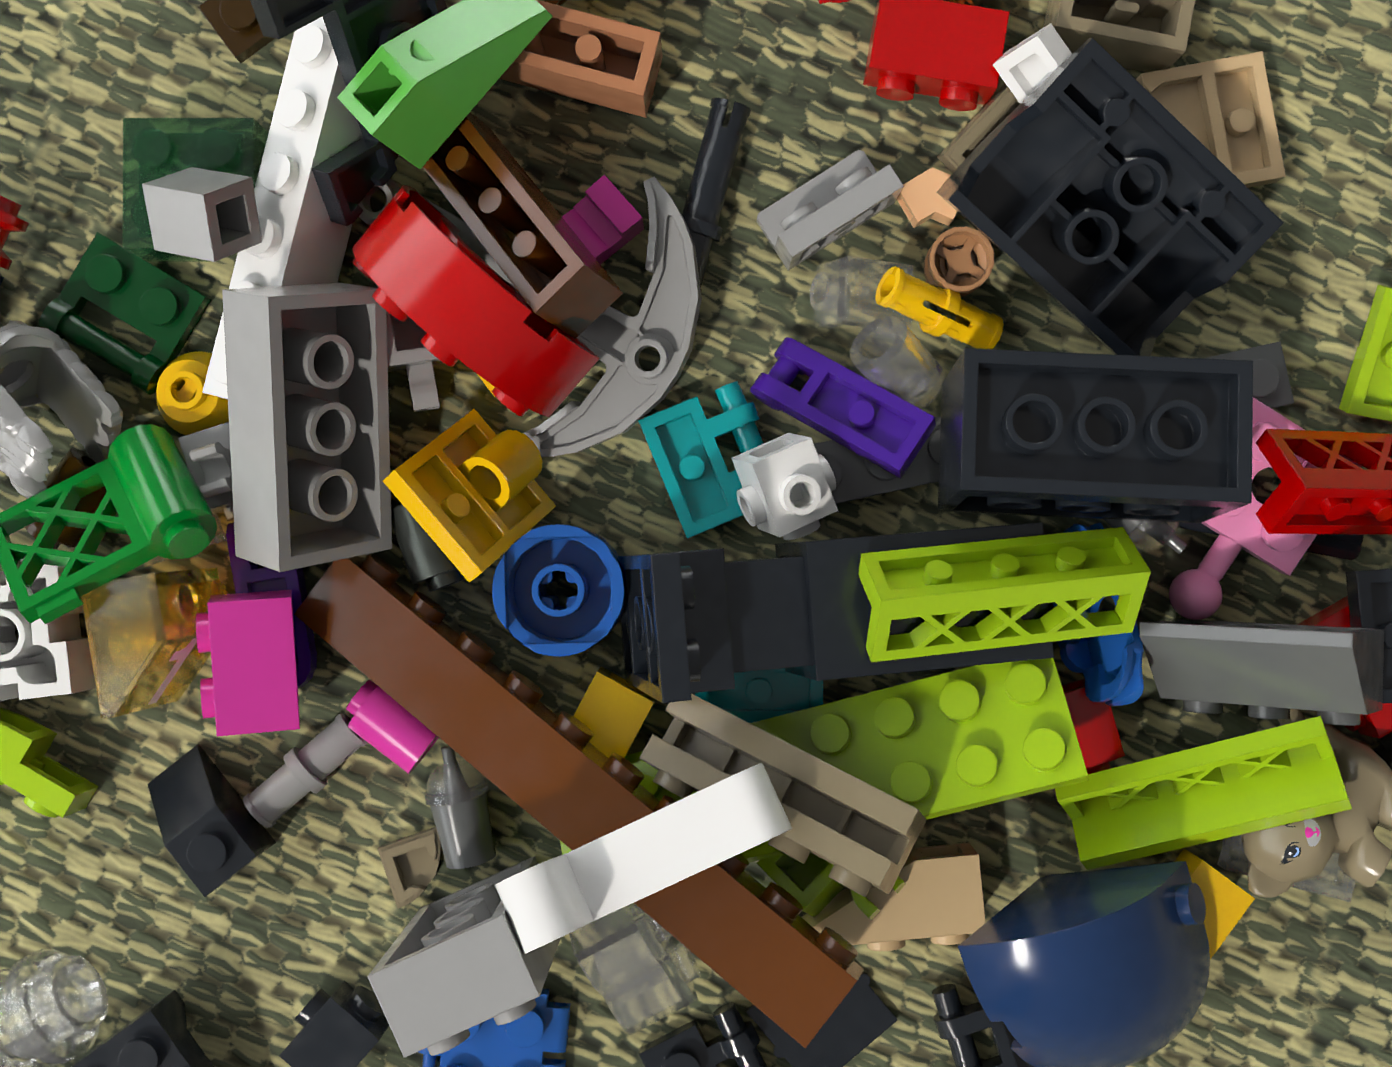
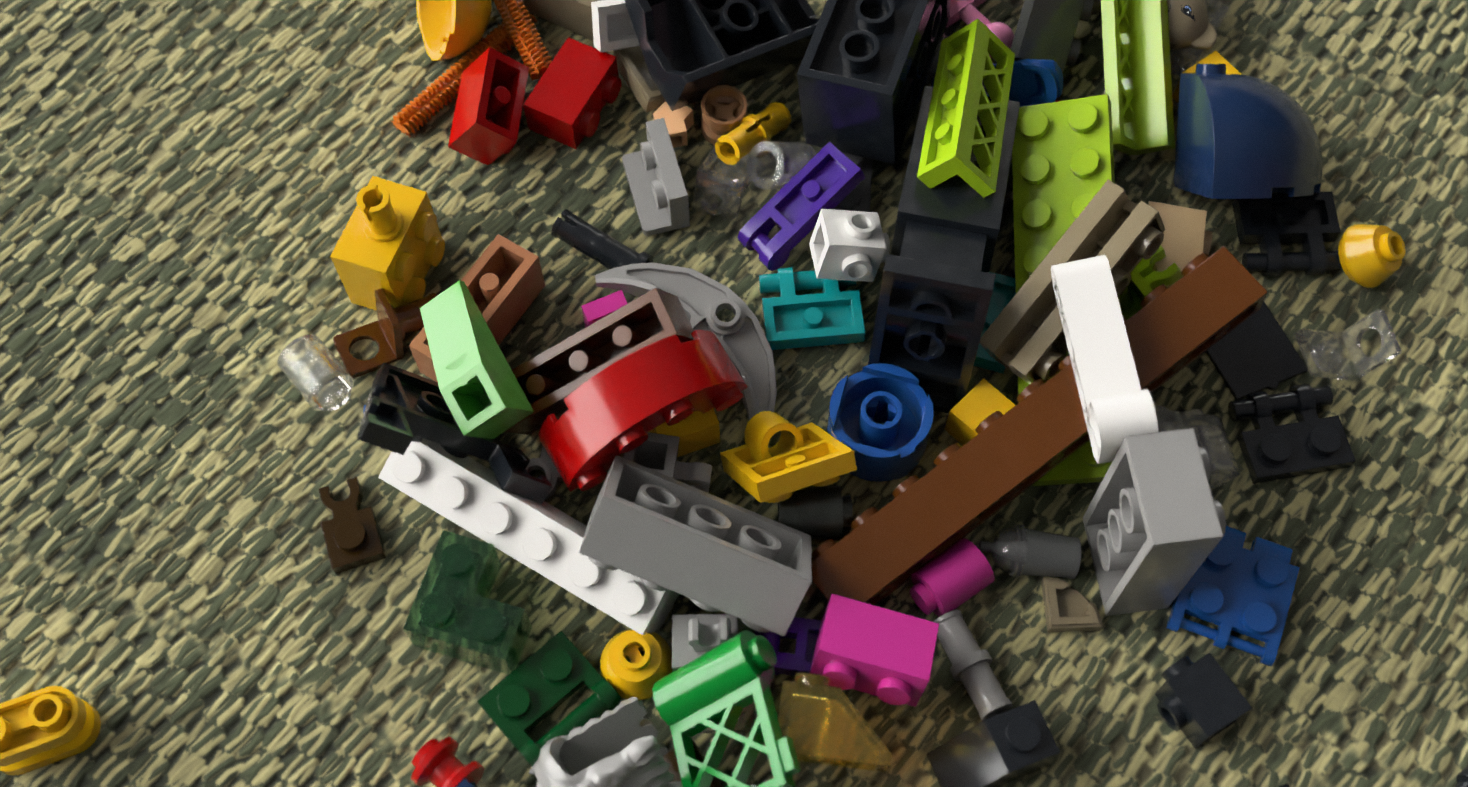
camera: 70 degrees left, 25 degrees down
(202, 213) = (508, 569): light grey brick -> none

